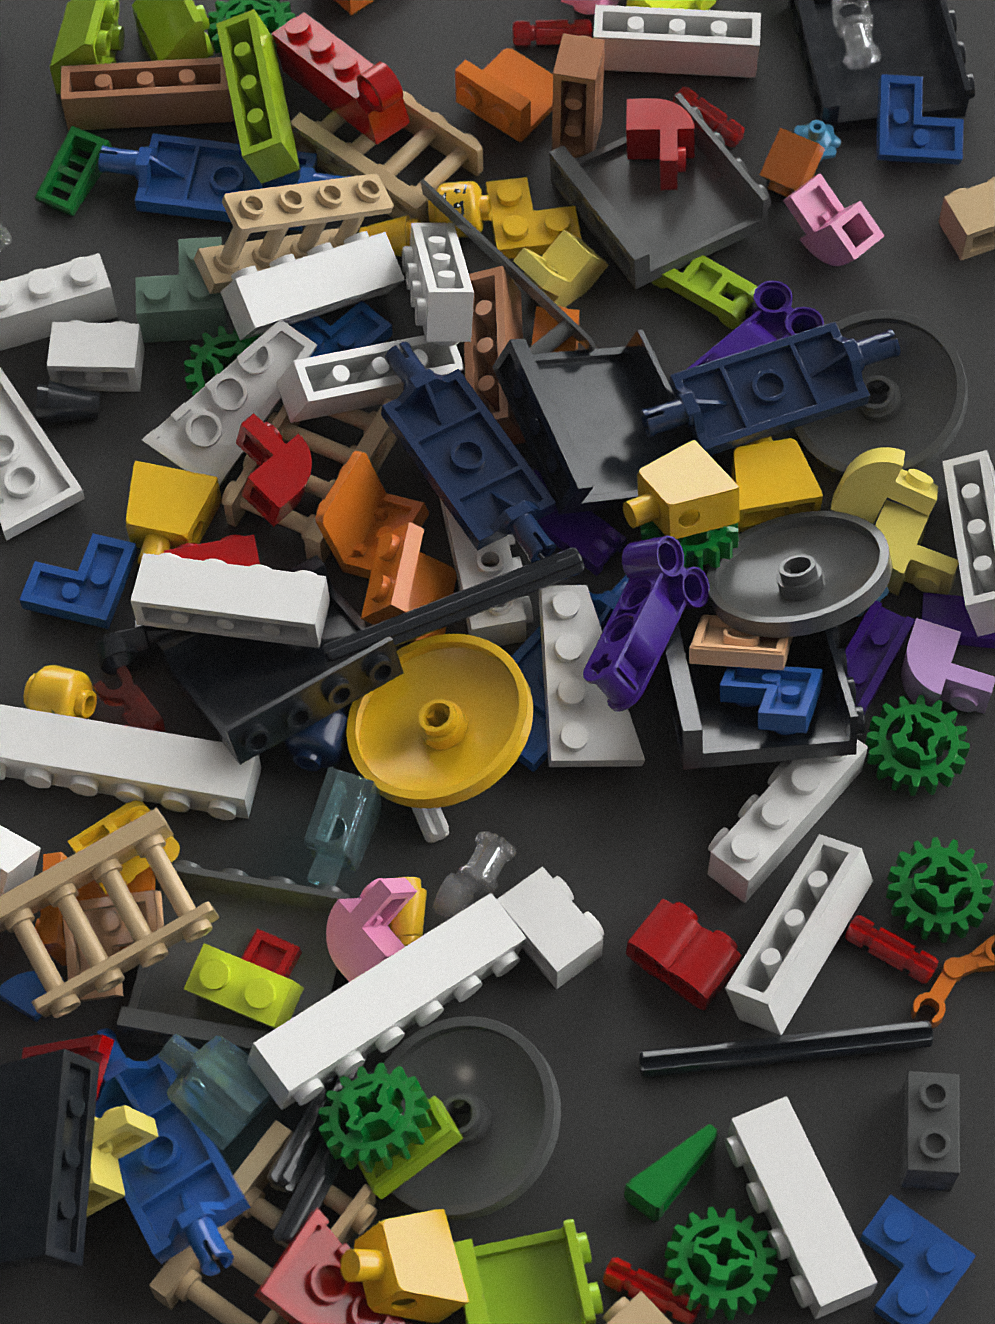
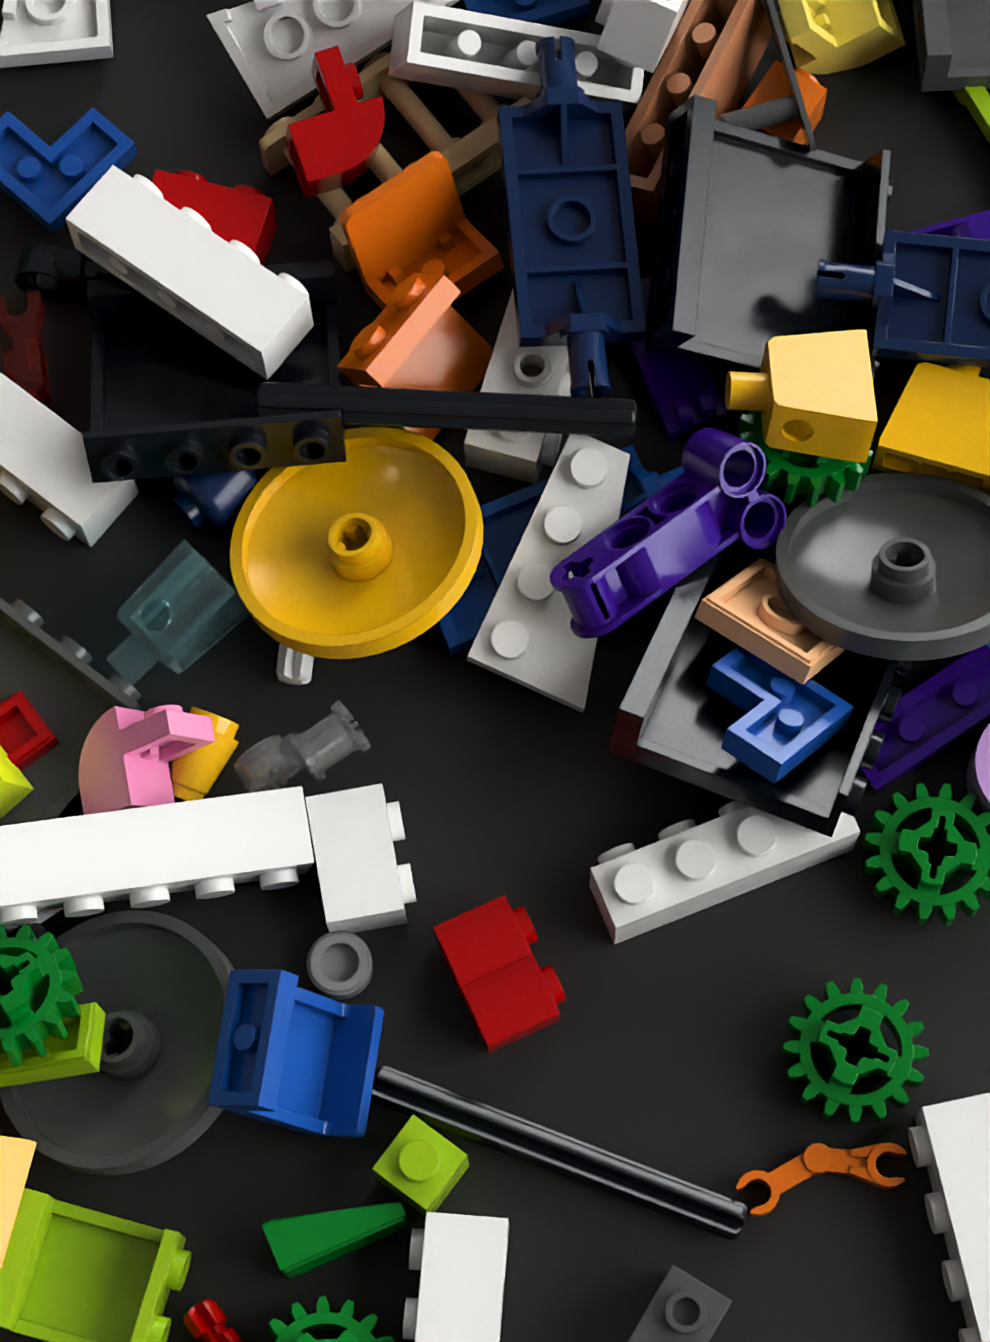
camera: 30 degrees right, 10 degrees up
(169, 507) = (196, 118): yellow torso -> none
(574, 1002) = (340, 965): none -> light grey tile
(587, 1065) = (295, 1056): none -> blue panel
(706, 1097) = (421, 1166): none -> lime brick
(799, 934) = (646, 1022): white brick -> none
(891, 949) = (755, 1094): red axle -> none

